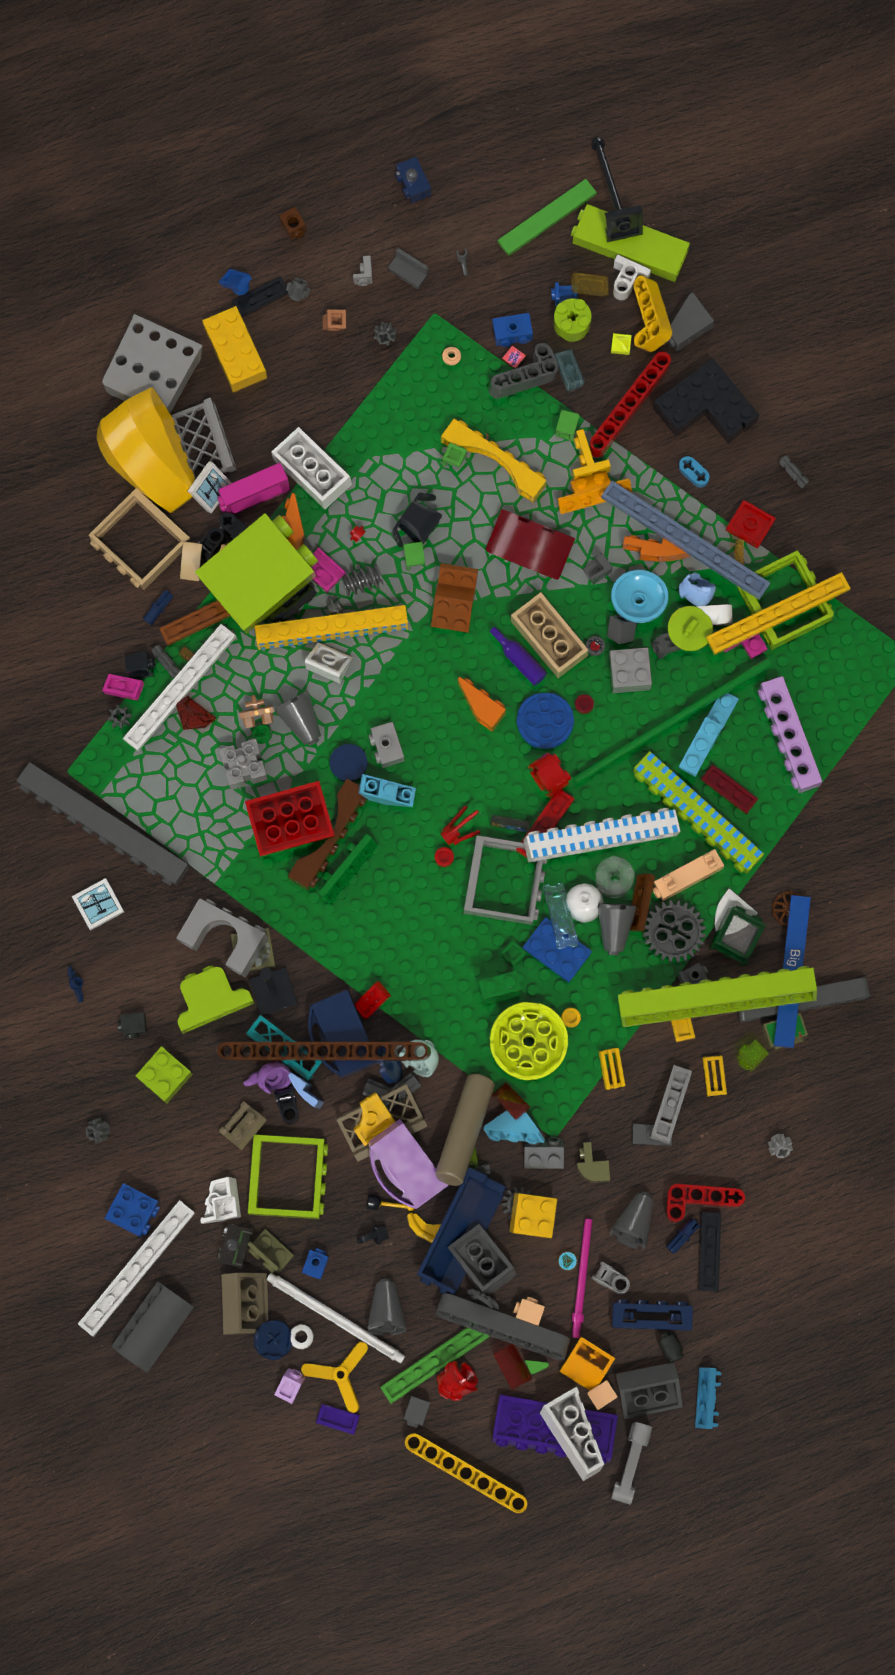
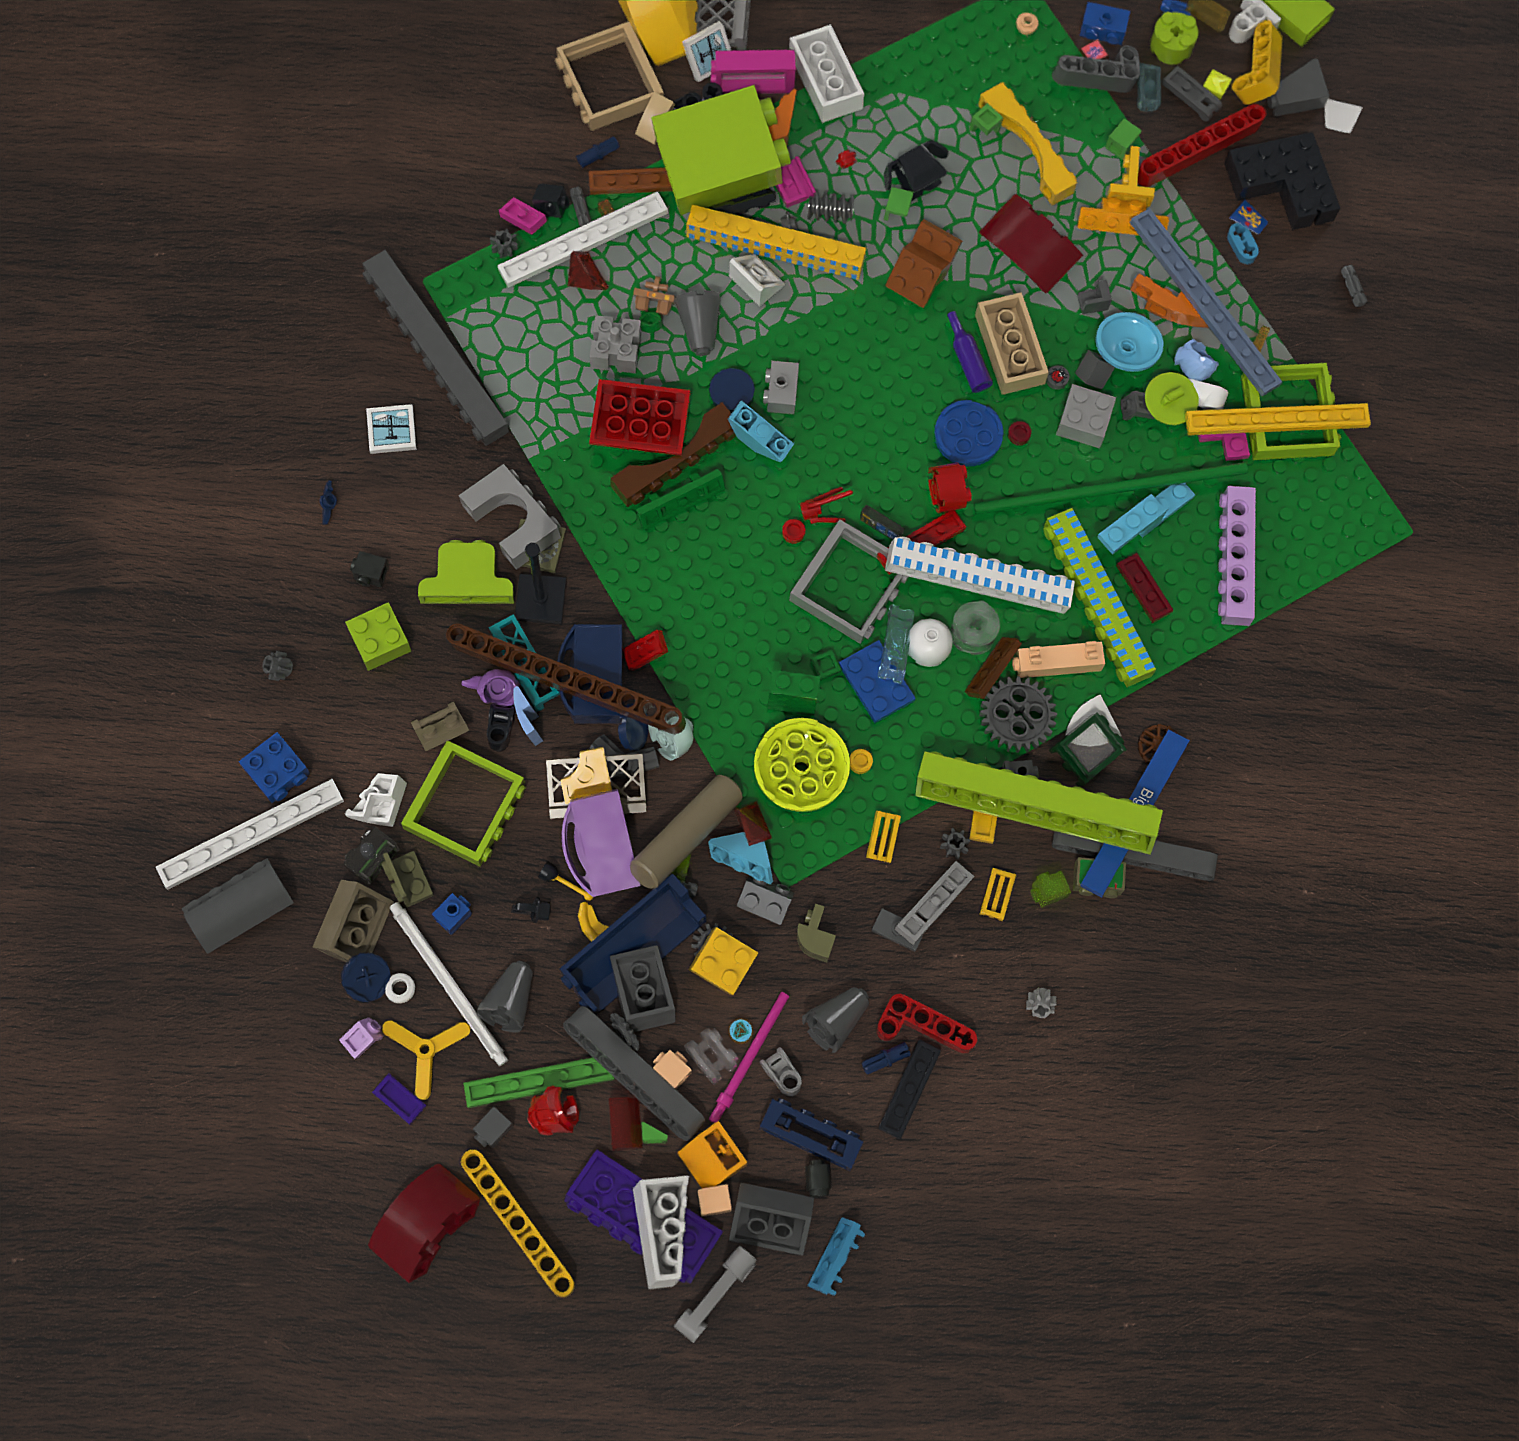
camera: 15 degrees right, 5 degrees down
(393, 1501) = (419, 1220): none -> dark red panel
(483, 708) = (907, 394): orange slope -> none
(549, 1277) = (712, 1041): none -> clear brick
(605, 360) = (1192, 93): none -> dark grey plate
(615, 925) = (954, 679): dark grey cone -> none
(668, 1045) = (950, 848): none -> dark grey gear
(690, 448) = (1249, 217): none -> blue sticker
(729, 329) = (1341, 116): none -> white sticker
(750, 524) = (1284, 319): red tile -> none

